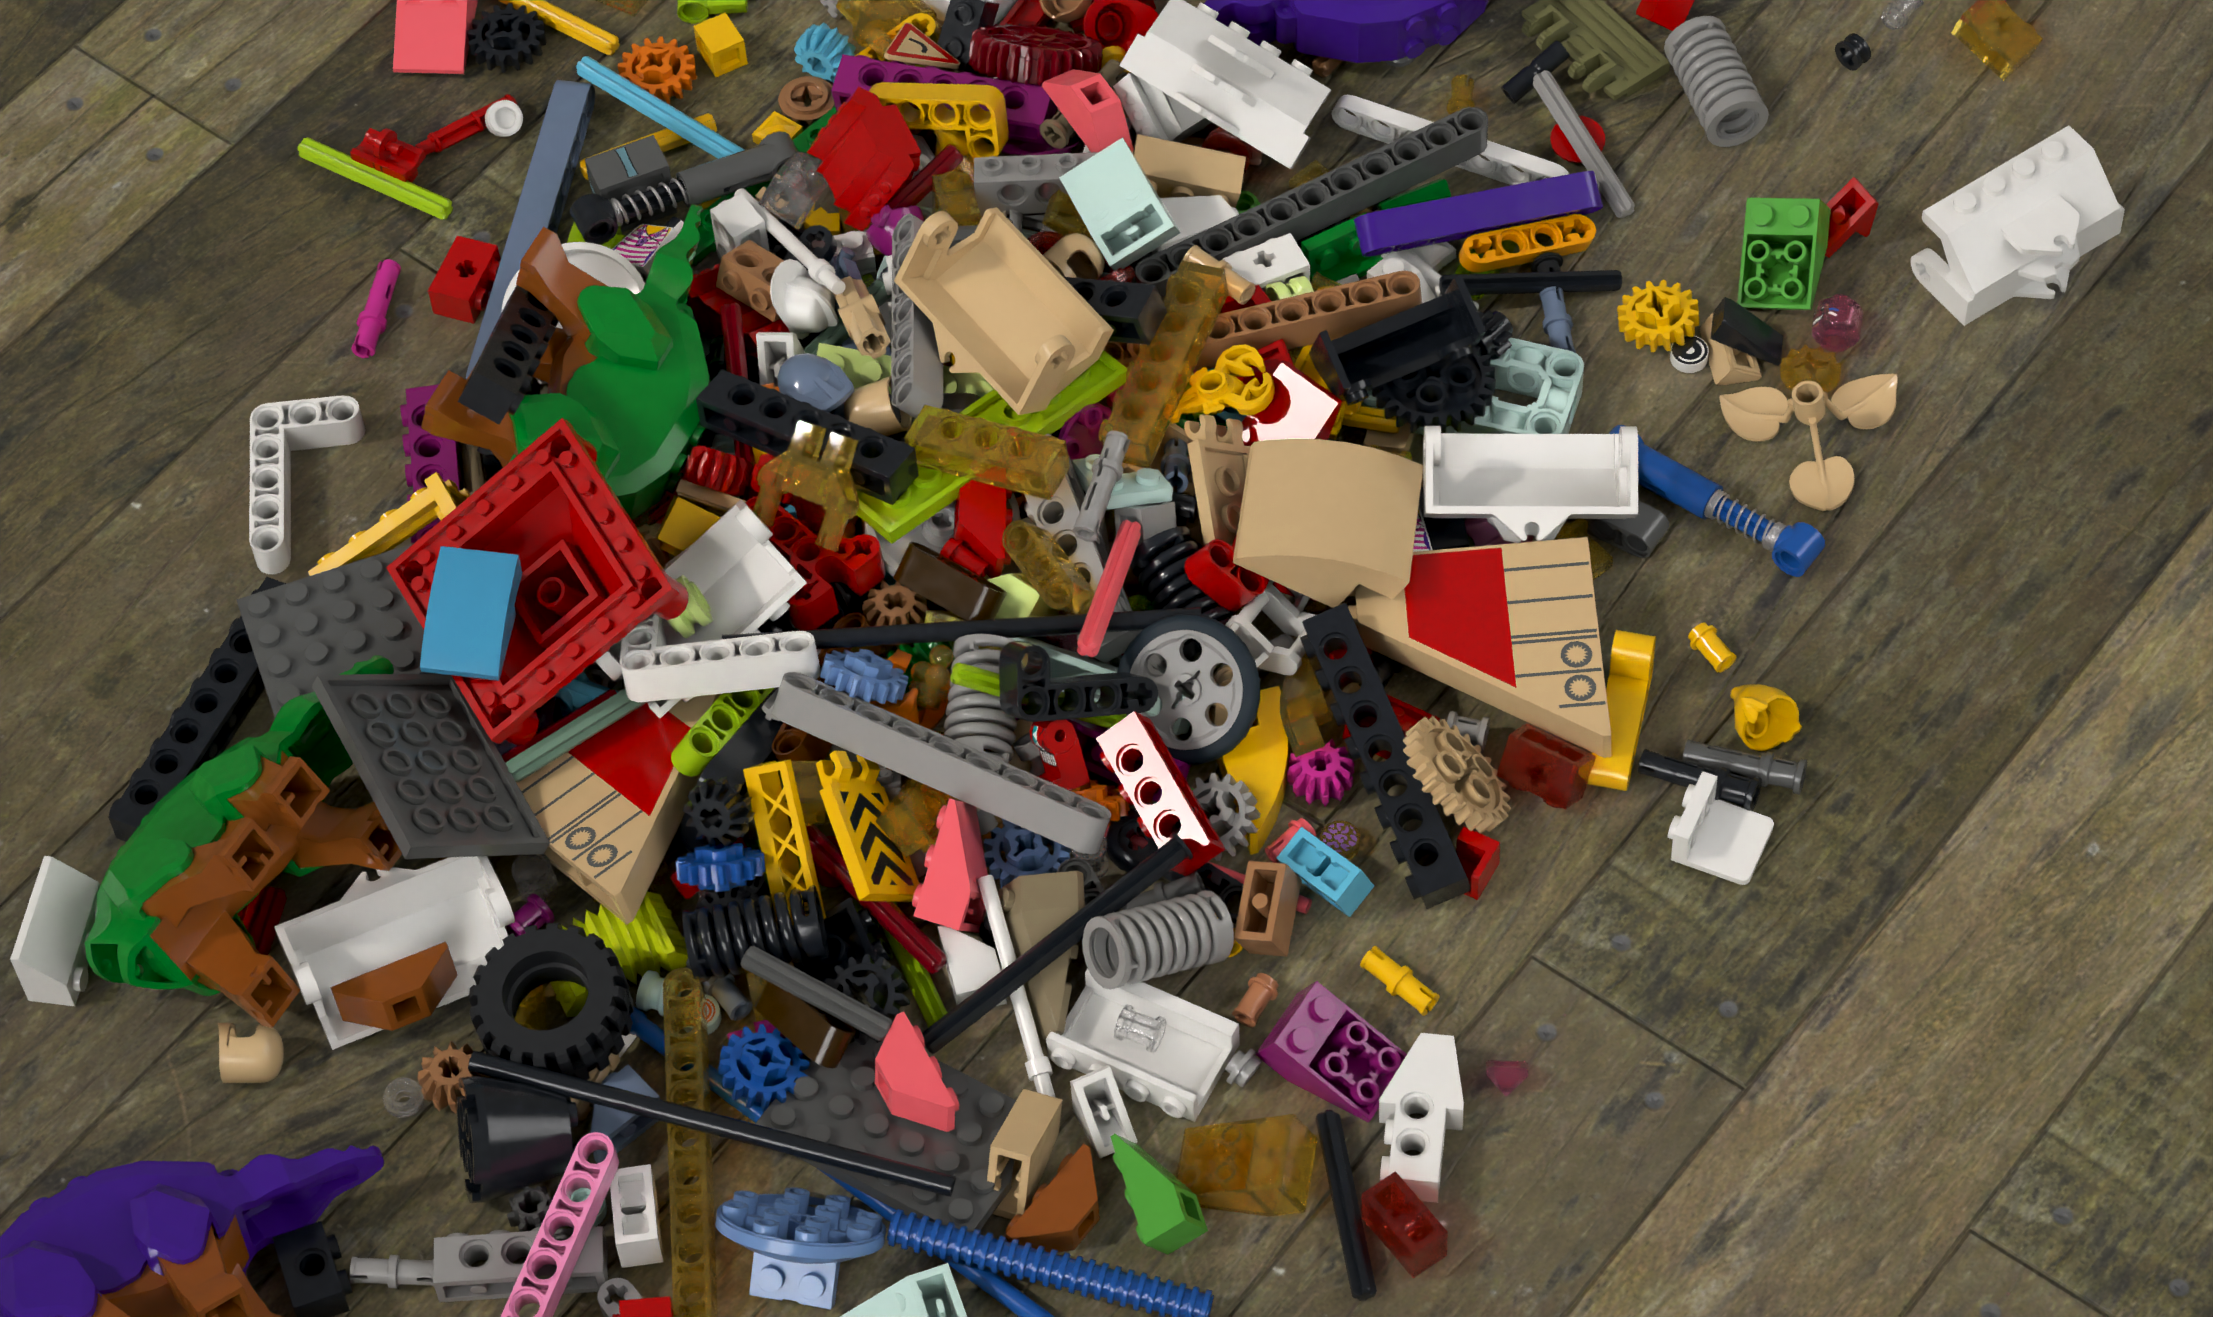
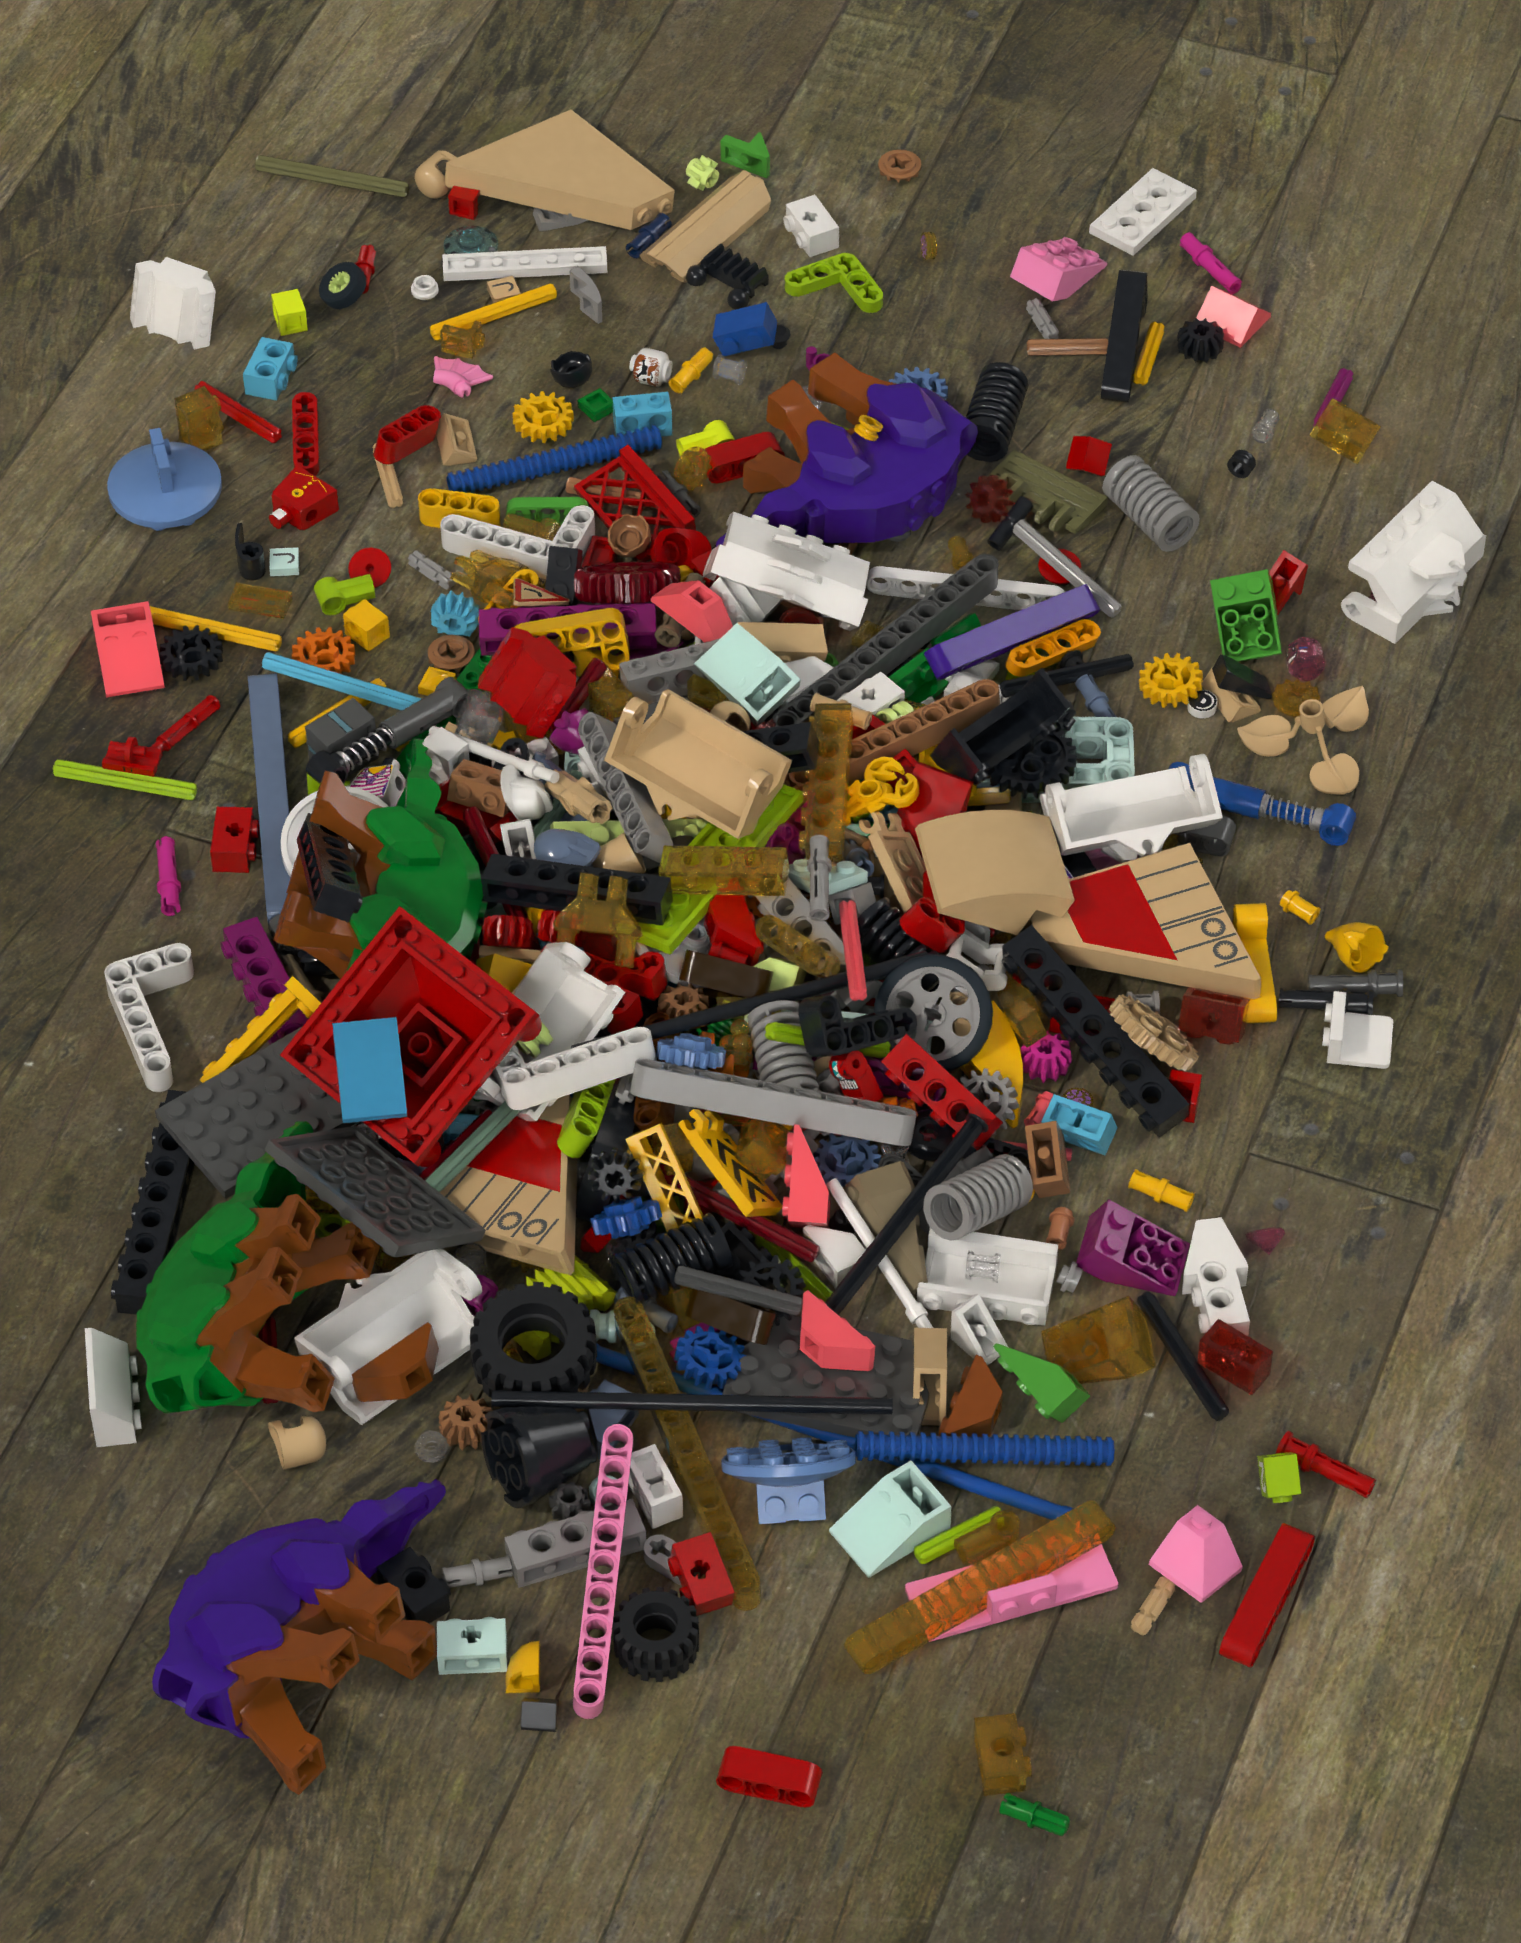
camera: 20 degrees left, 5 degrees down
(504, 118) = (213, 713): white tile -> none
(1518, 35) = (980, 498): none -> clear red gear

